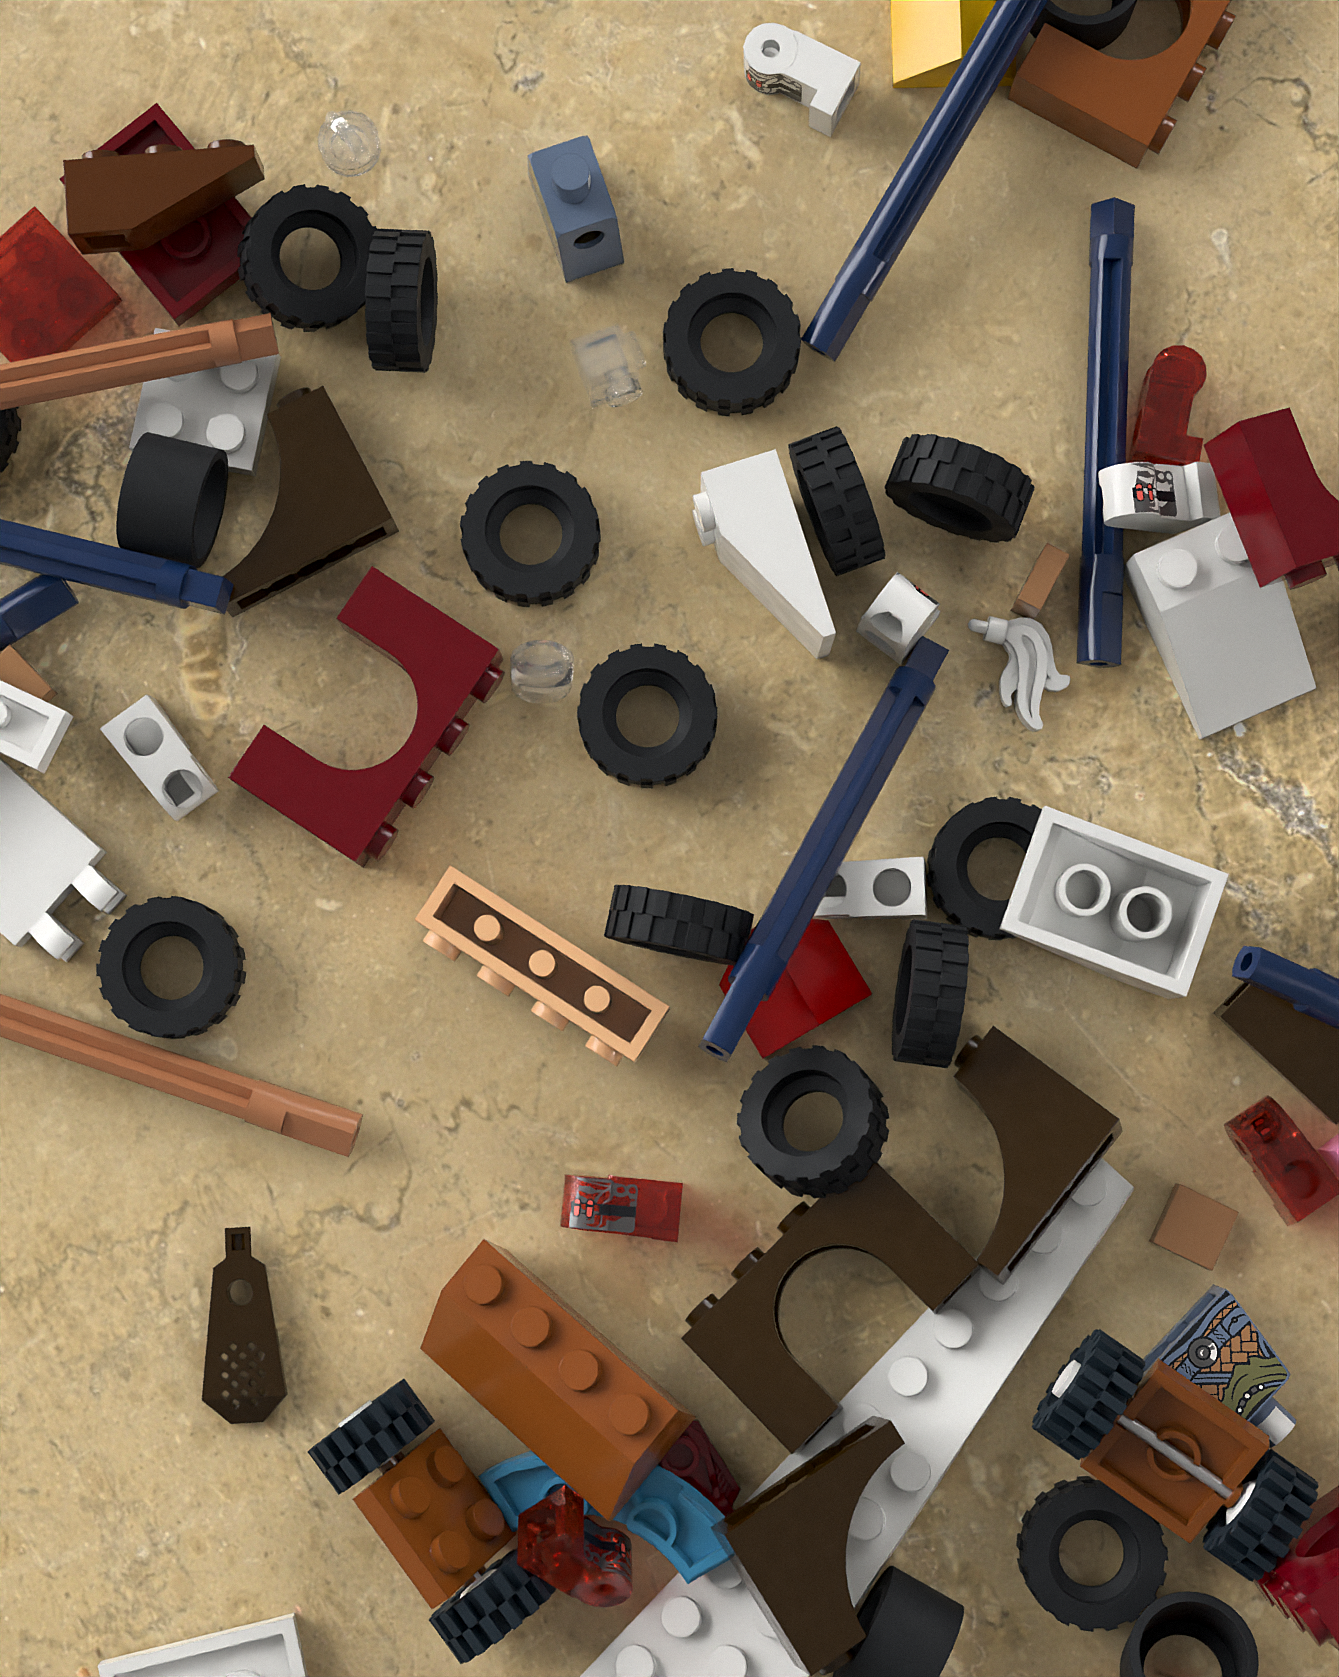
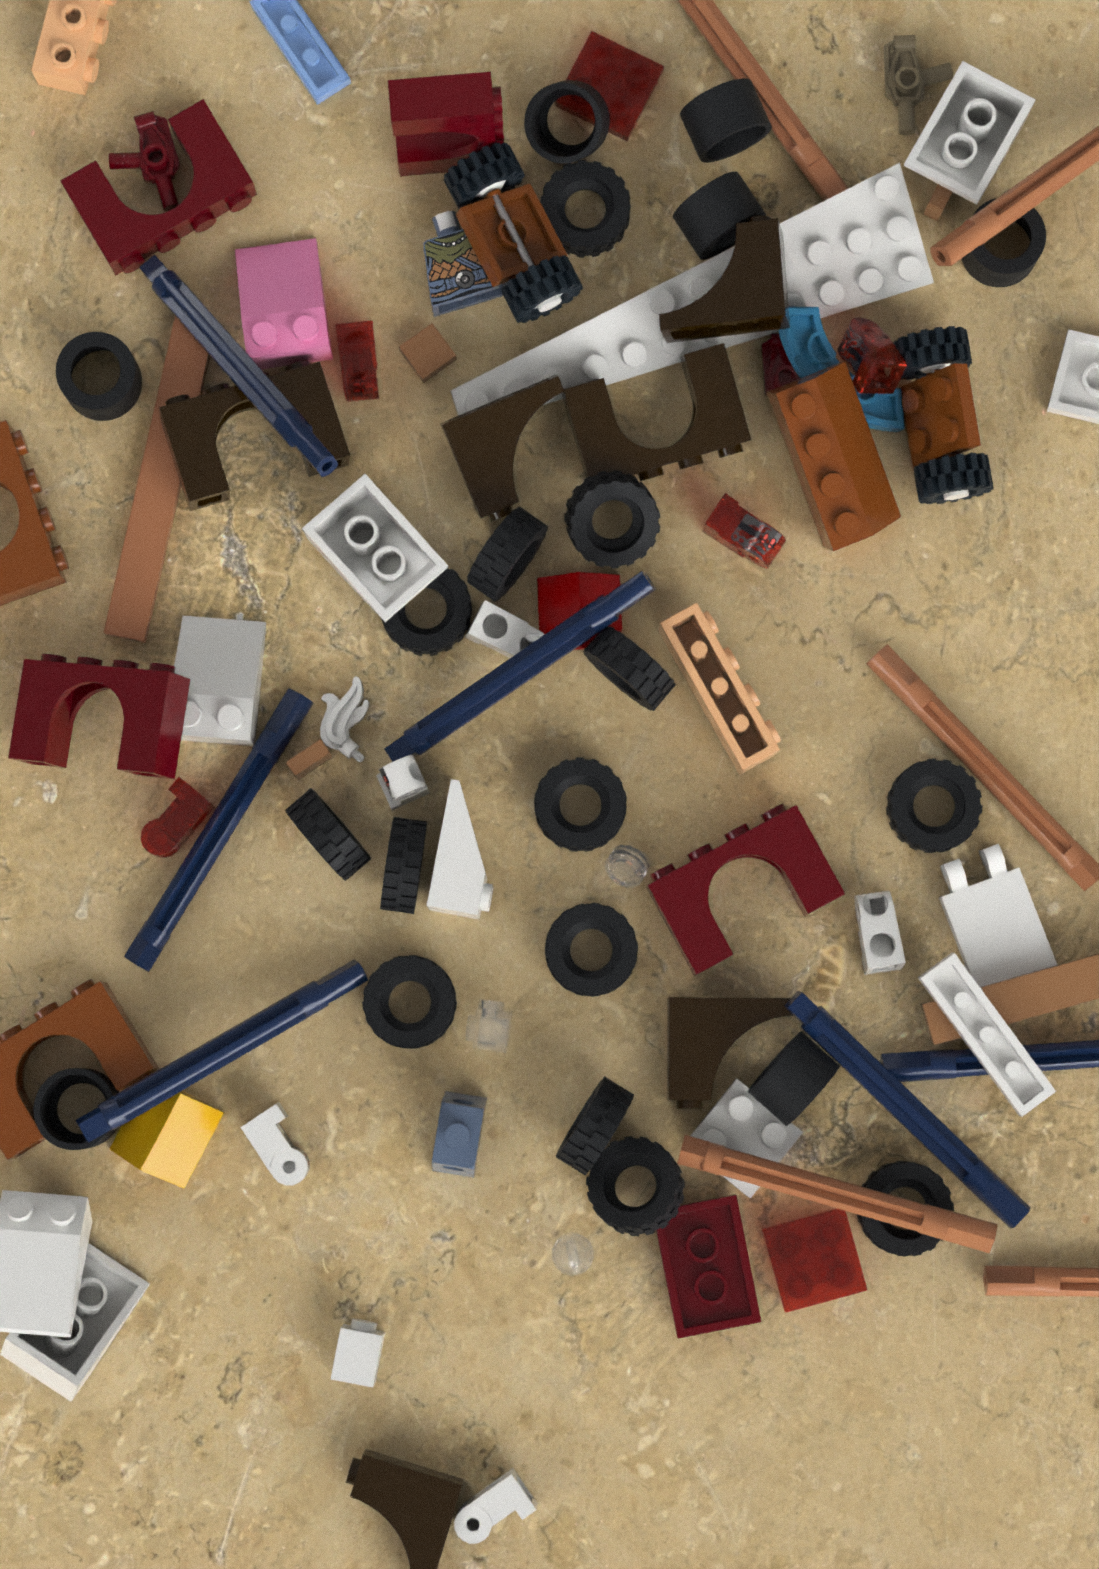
camera: 155 degrees left, 0 degrees up
(144, 197) = (719, 1273): reddish brown slope -> none
(242, 1325) = (996, 582): dark brown piece -> none
(1159, 496) = (213, 769): white leg -> none

